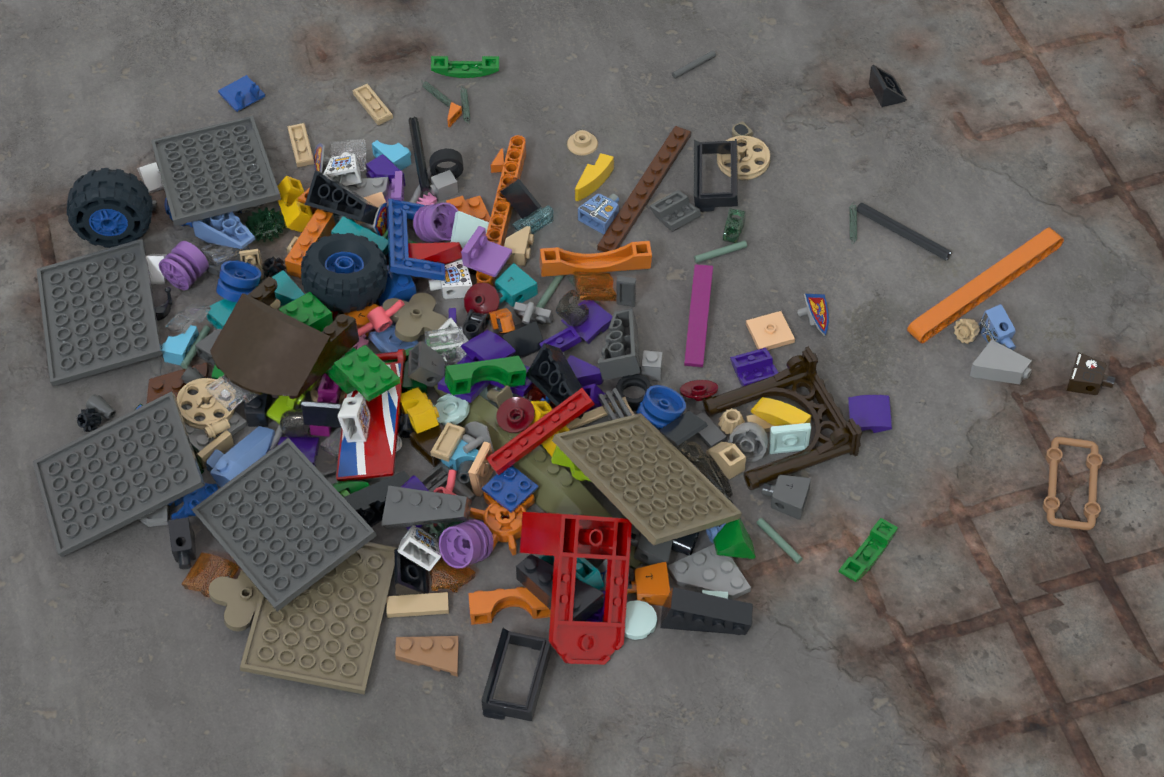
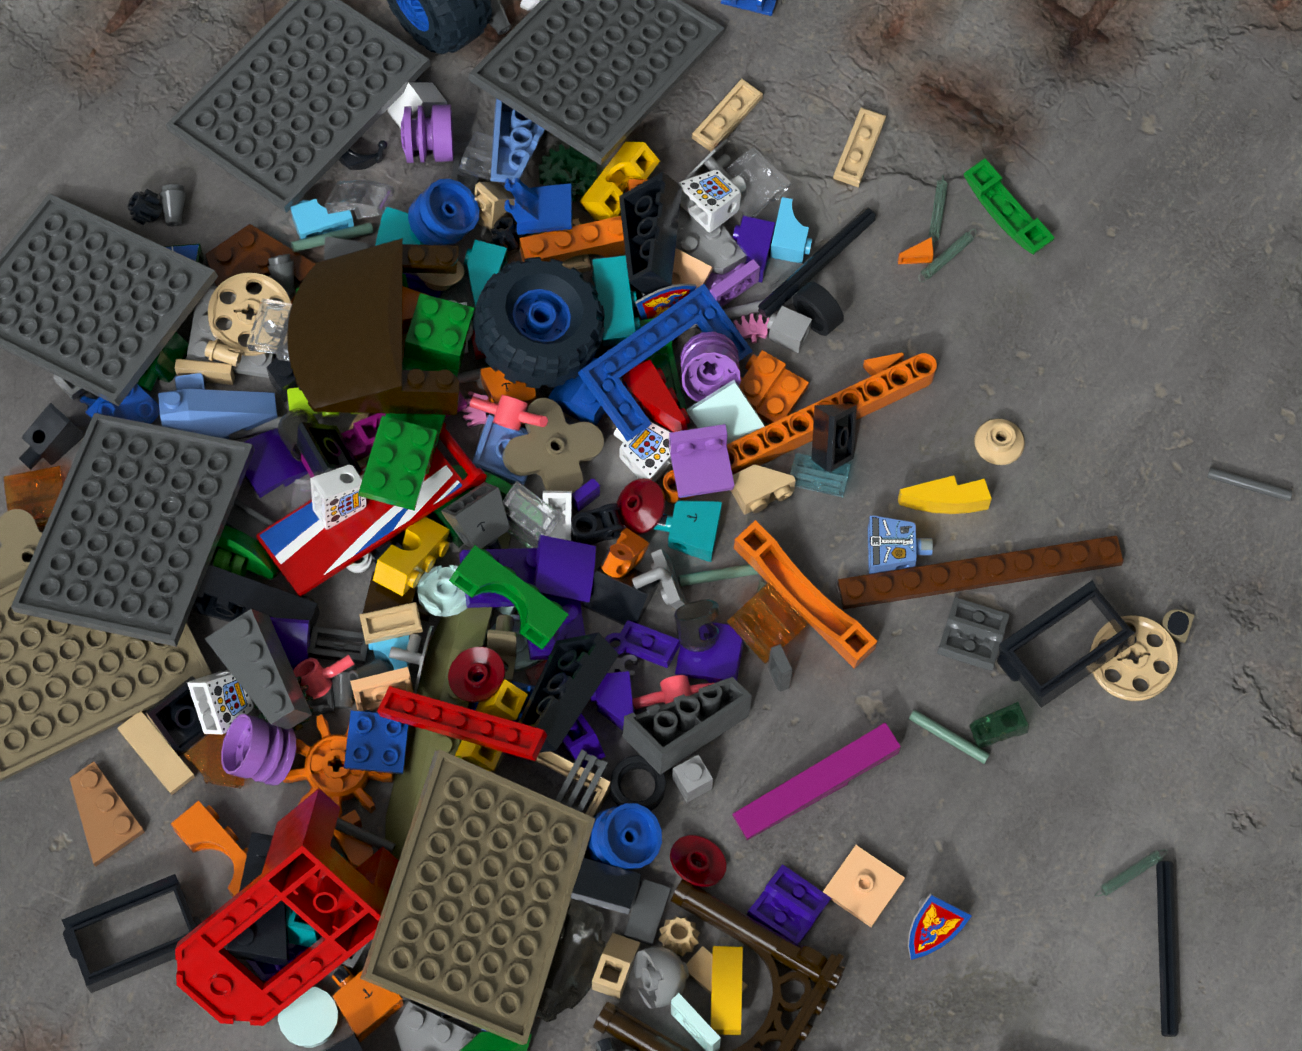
camera: 50 degrees right, 15 degrees up
(277, 240) = (540, 207): none -> blue plate
(595, 346) = (671, 688): none -> coral piece

